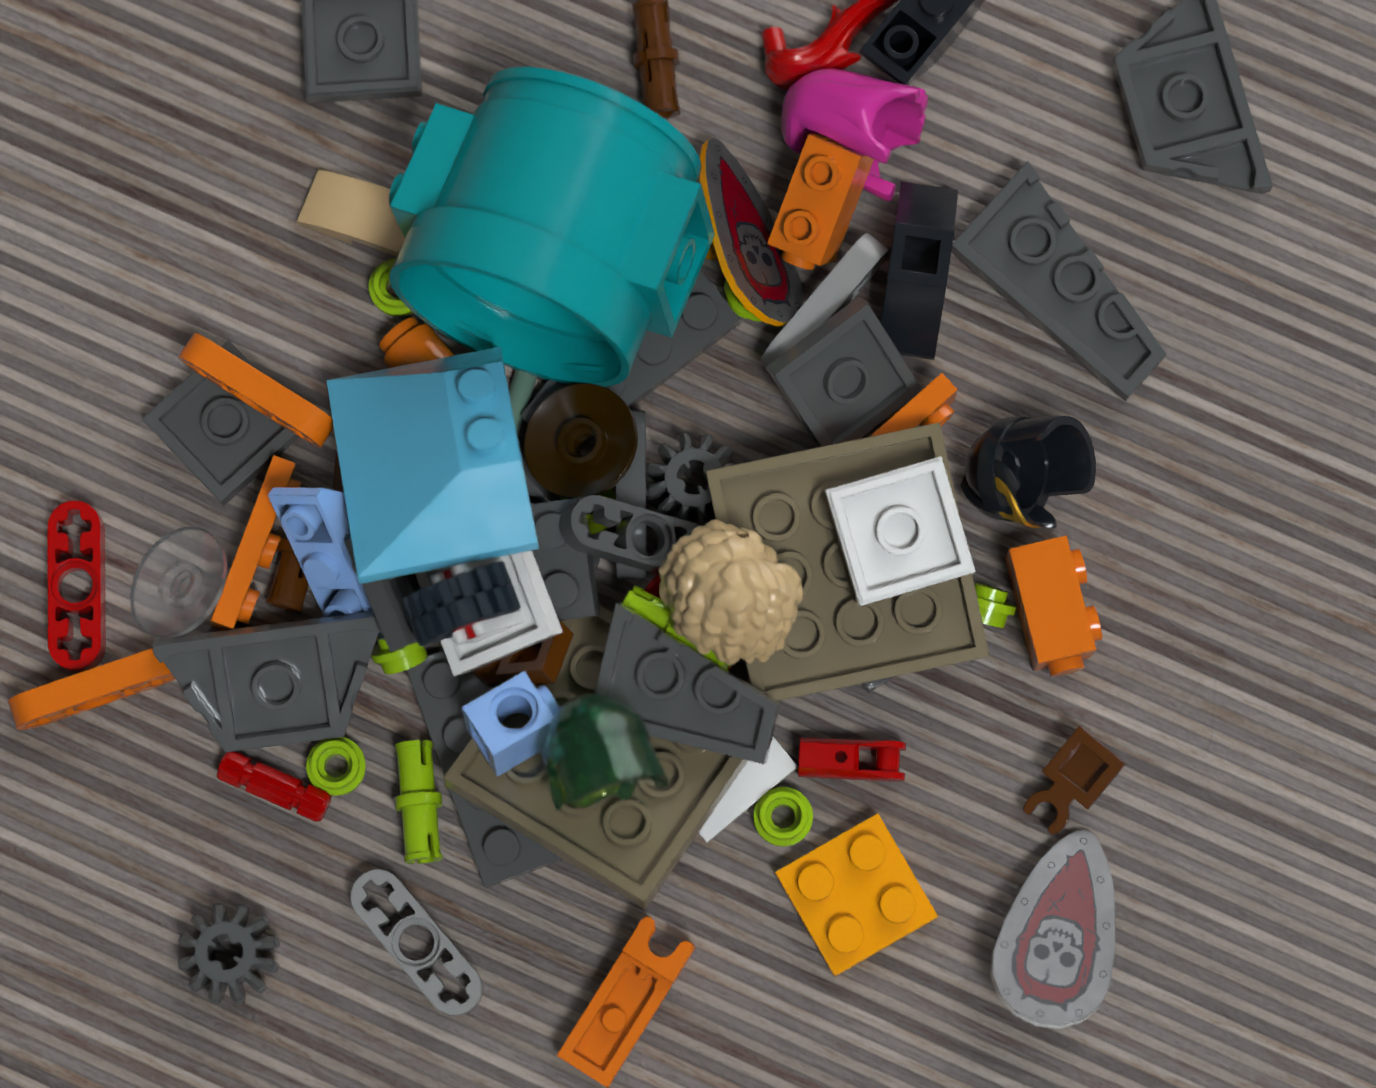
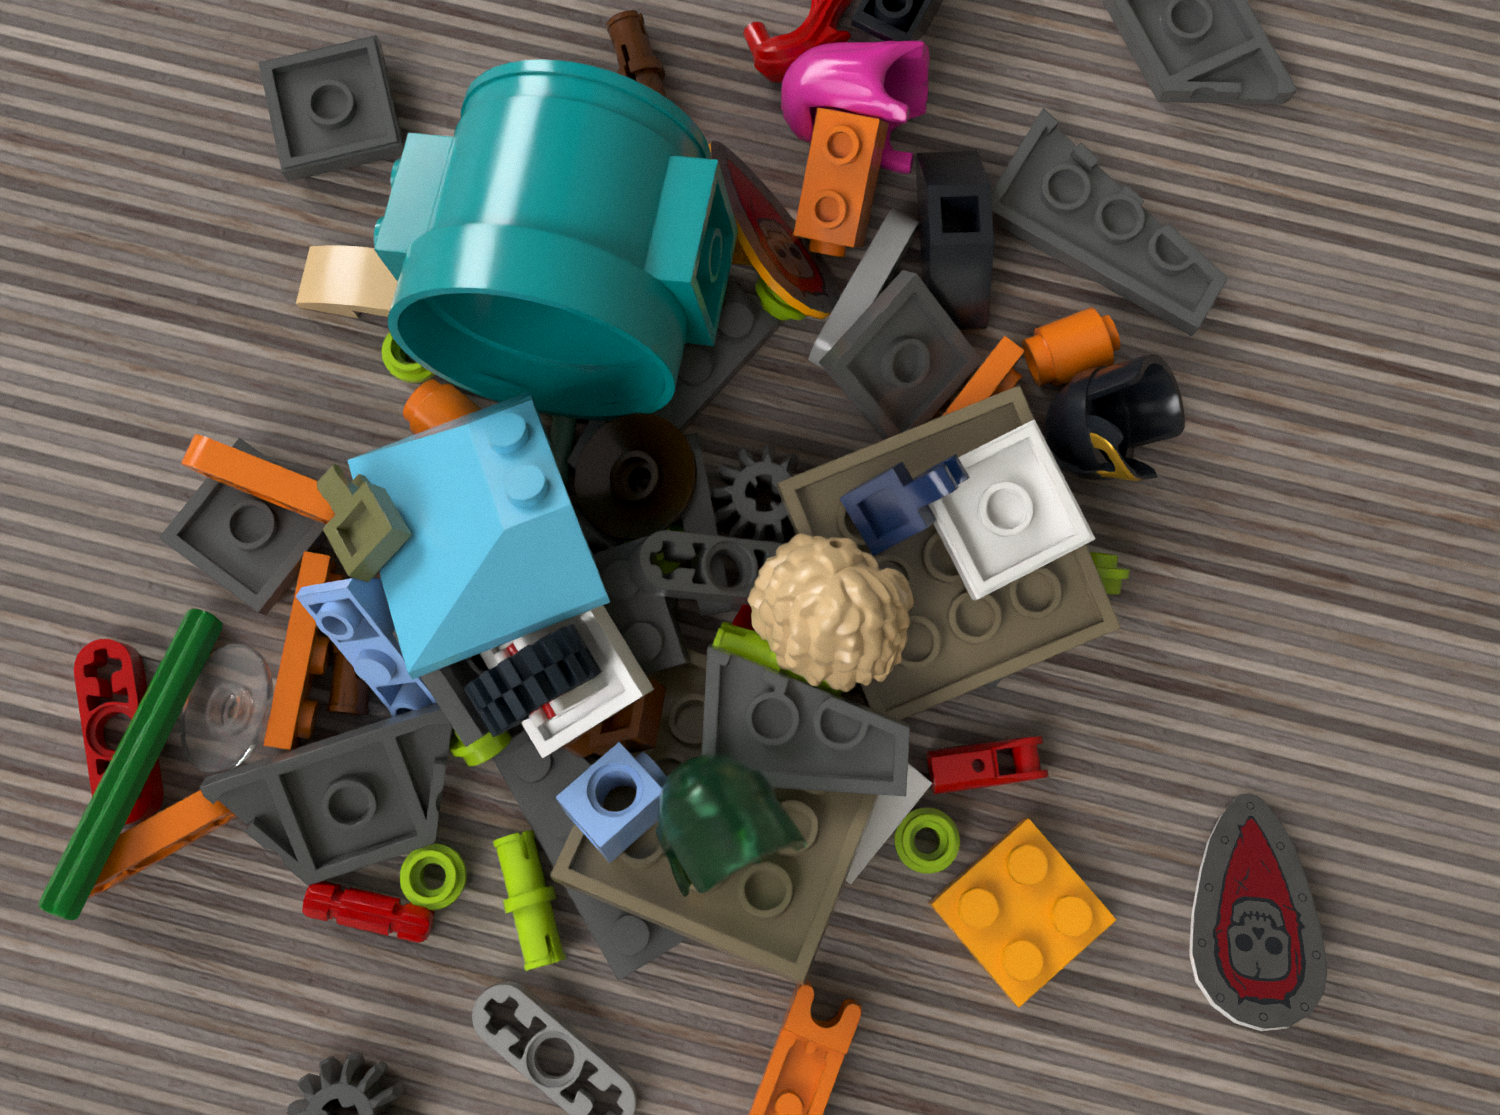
camera: 15 degrees left, 0 degrees up
(93, 614) = (130, 766): none -> green axle
(339, 444) = (365, 523): none -> olive plate
(804, 511) = (896, 505): none -> dark blue plate
(1007, 391) = (1070, 346): none -> orange brick
(1051, 605) = (1167, 560): orange brick -> none
(1079, 773) = (1233, 732): reddish brown plate -> none

